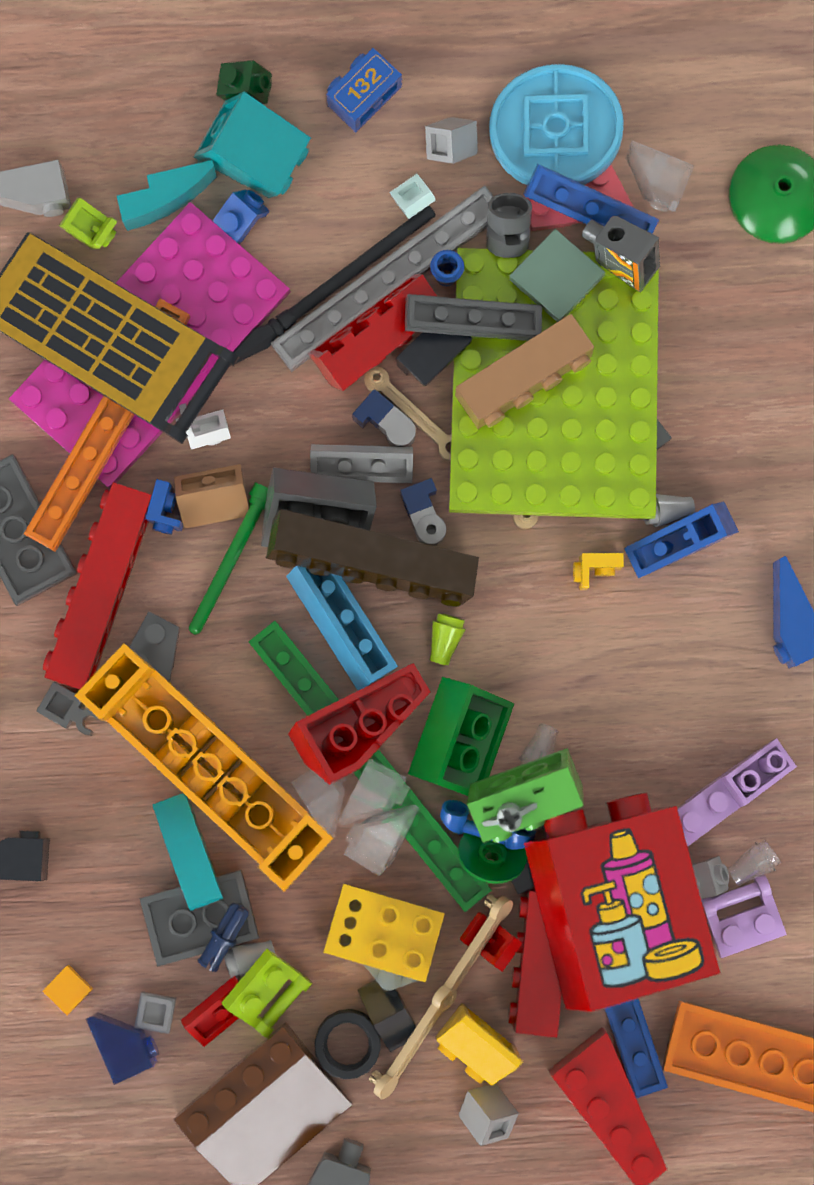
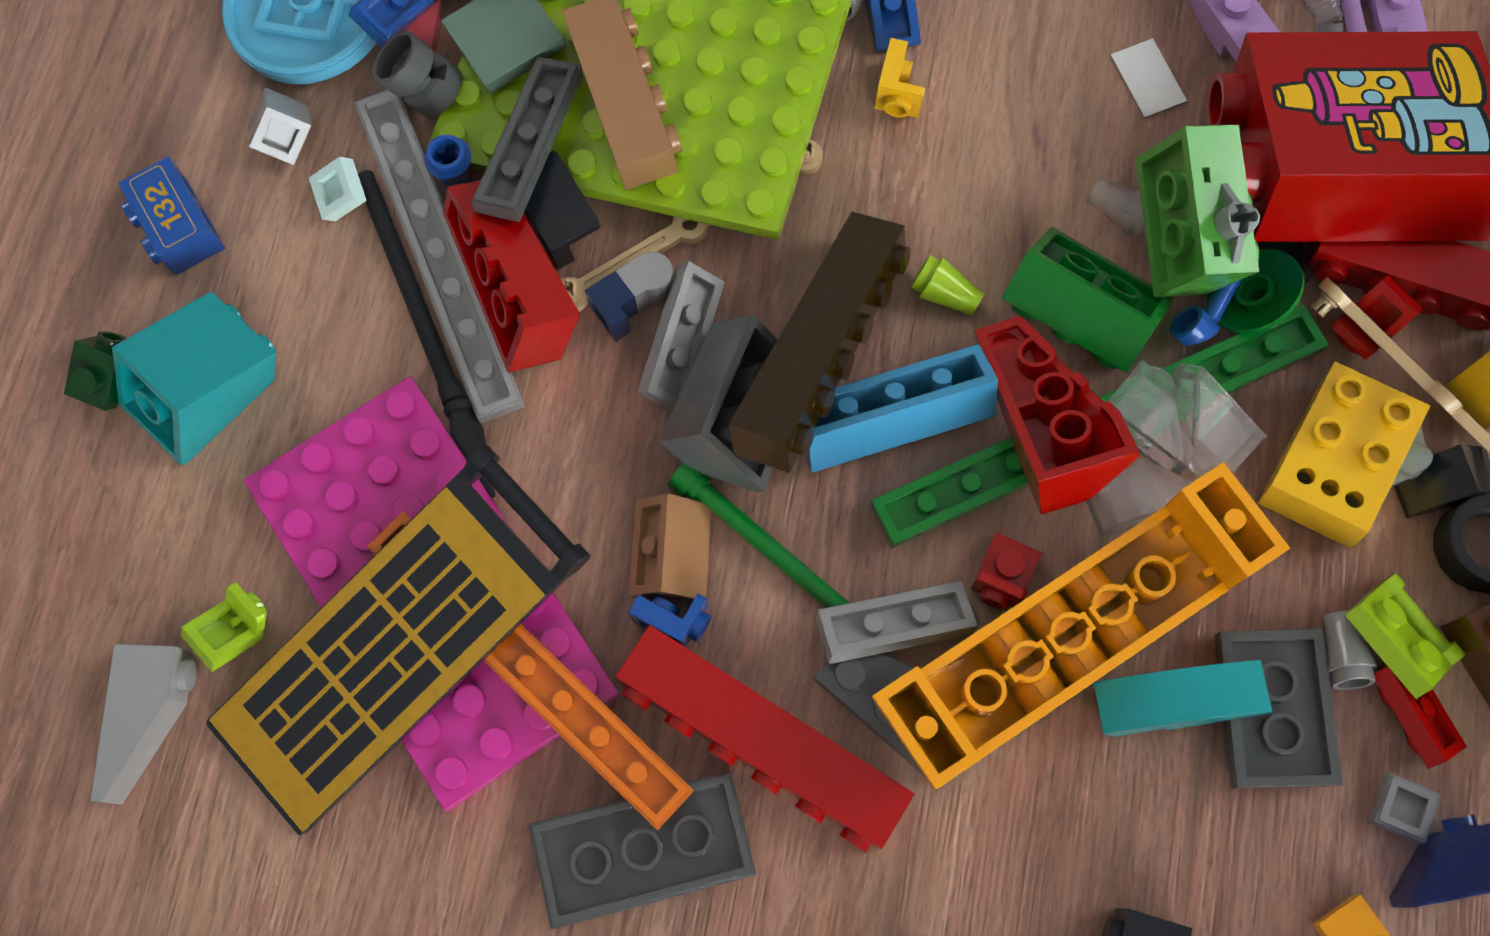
camera: 70 degrees left, 10 degrees down
(63, 708) = (927, 834): dark grey plate -> none
(166, 194) = (219, 512): teal slope -> none
(195, 655) = (895, 622): none -> light grey plate
(207, 429) = (578, 522): white bracket -> none
(223, 936) = (1320, 673): dark blue axle -> none
(240, 214) = (284, 416): blue bracket -> none
(249, 721) = (1005, 572): none -> red bracket
(426, 524) = (770, 275): leg -> none
(655, 751) = (1148, 77): none -> white sticker

